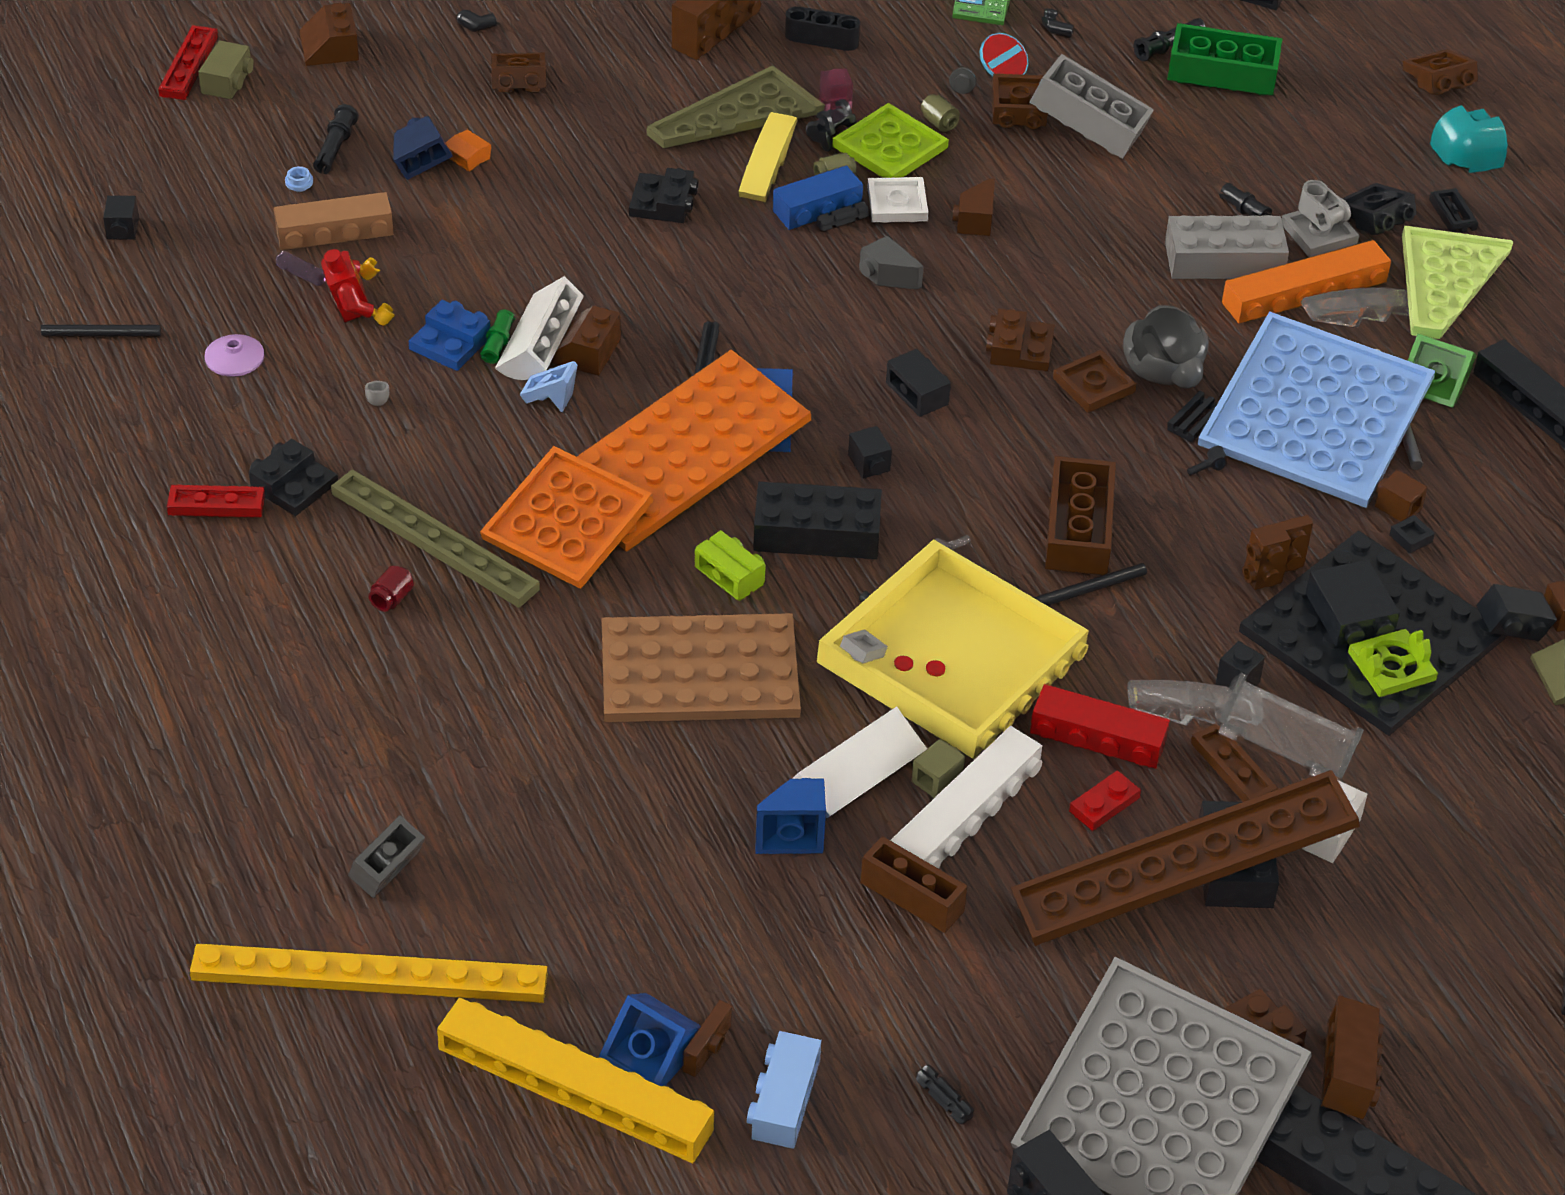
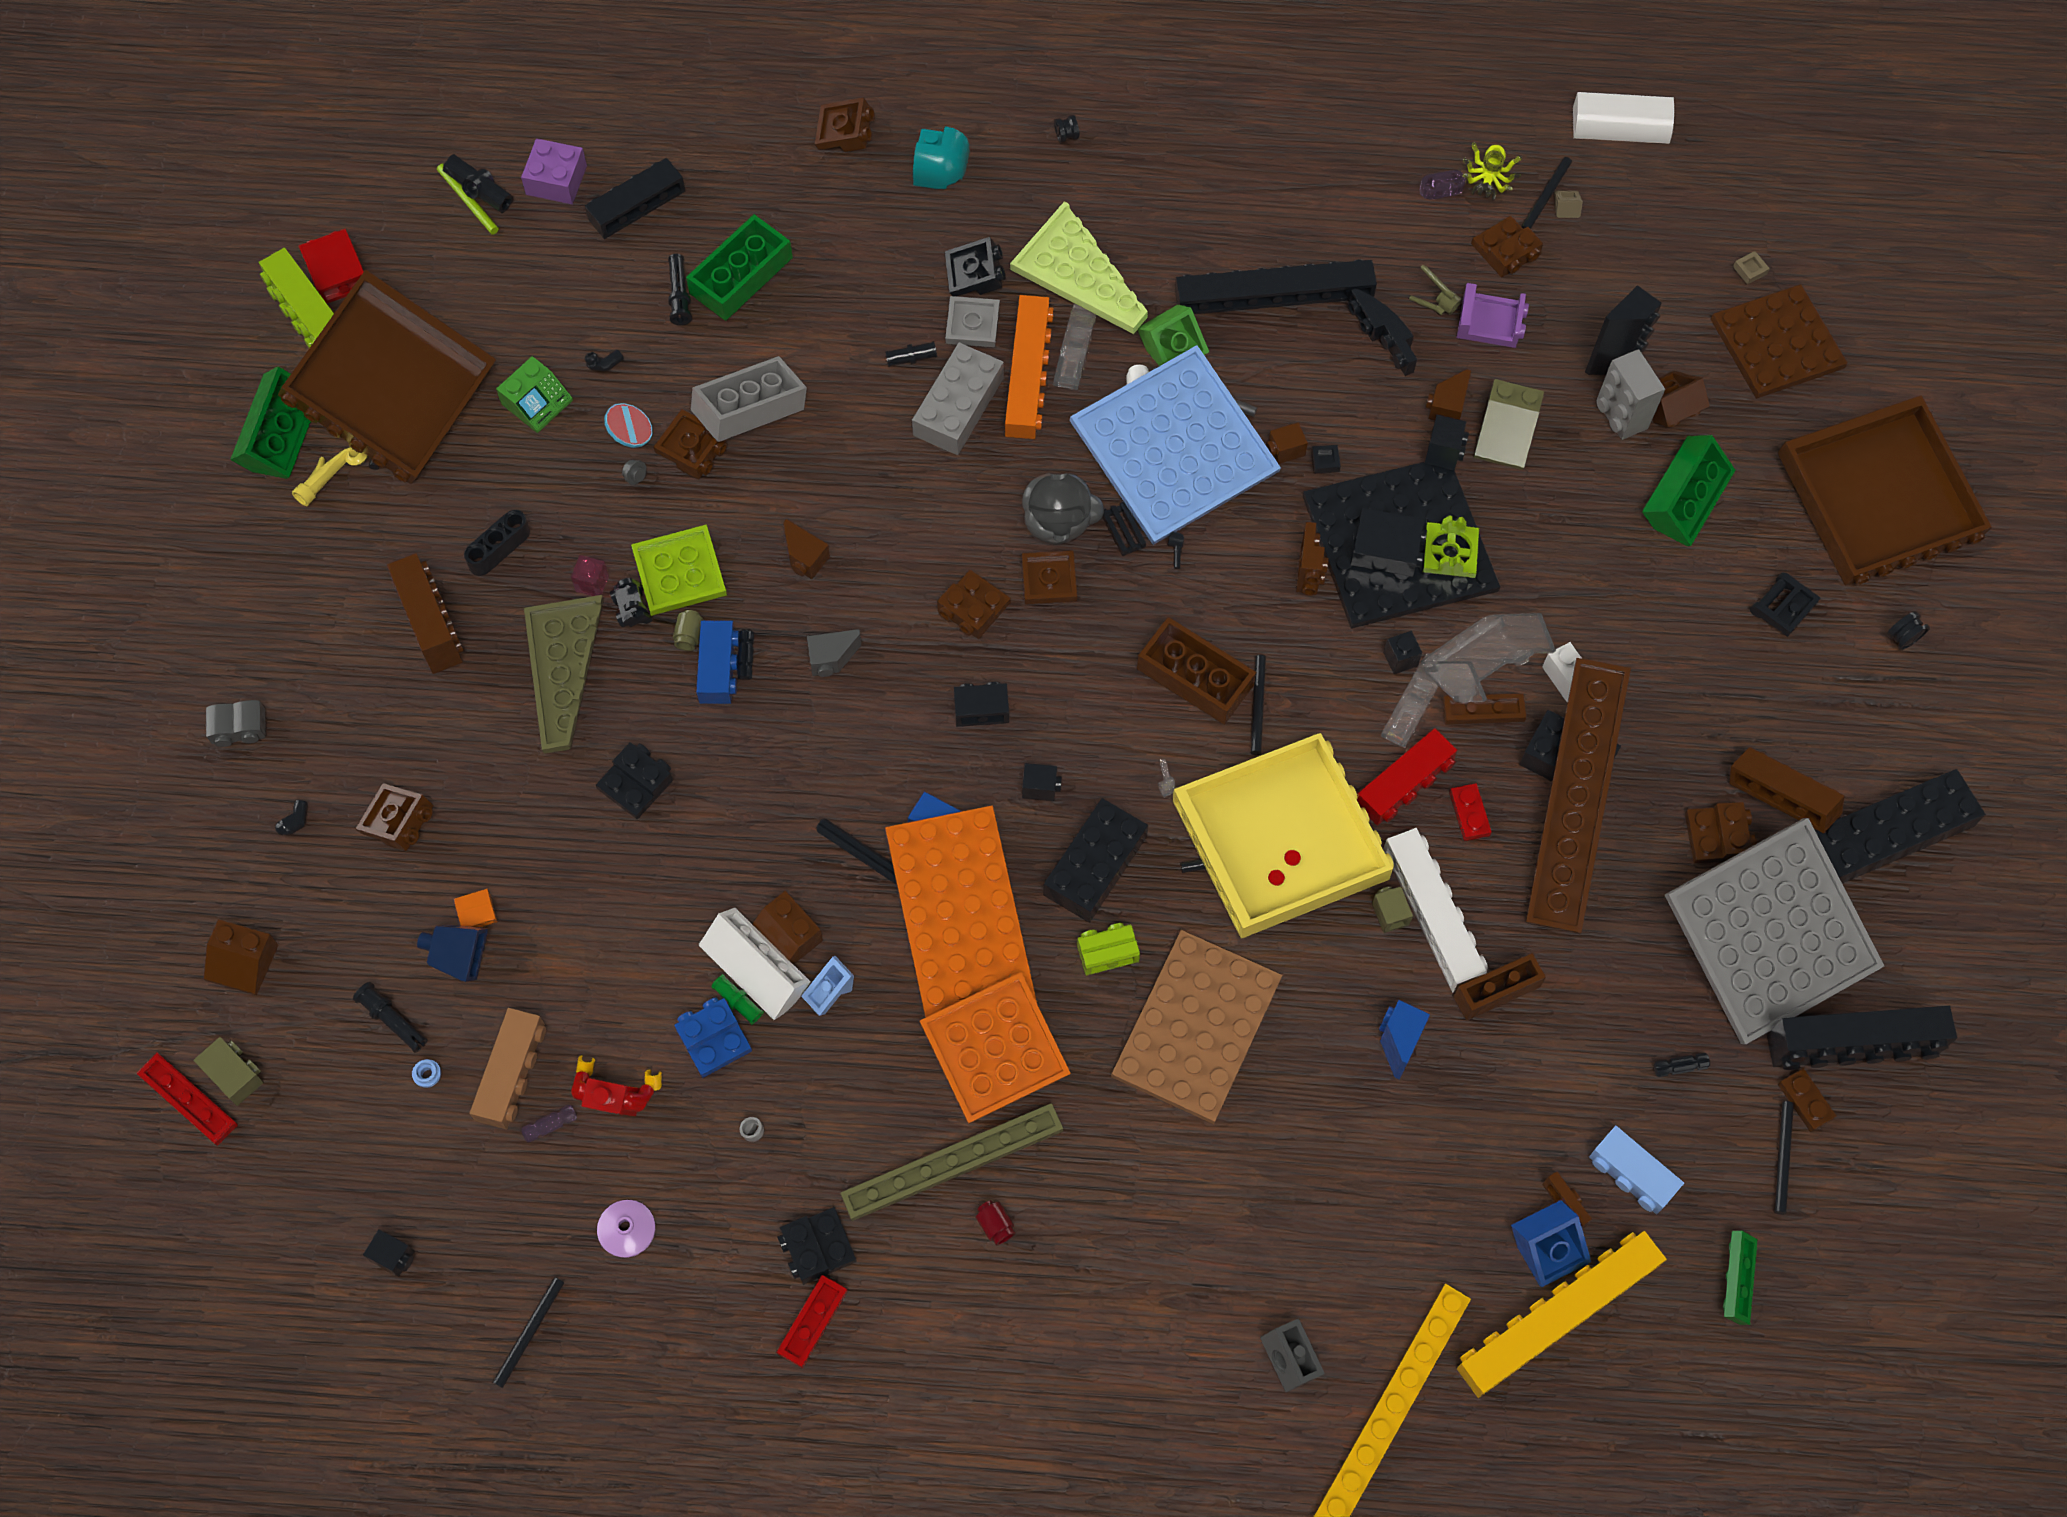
camera: 60 degrees left, 20 degrees up
(767, 156) = (639, 672): light yellow slope -> none
(863, 646) = (1273, 901): light grey plate -> none
(865, 759) = (1359, 963): white brick -> none
(897, 199) = (753, 602): white plate -> none
(940, 112) = (666, 512): olive brick -> none
(1321, 204) = (963, 306): light grey piece -> none
(1448, 210) = (1001, 221): black tile -> none

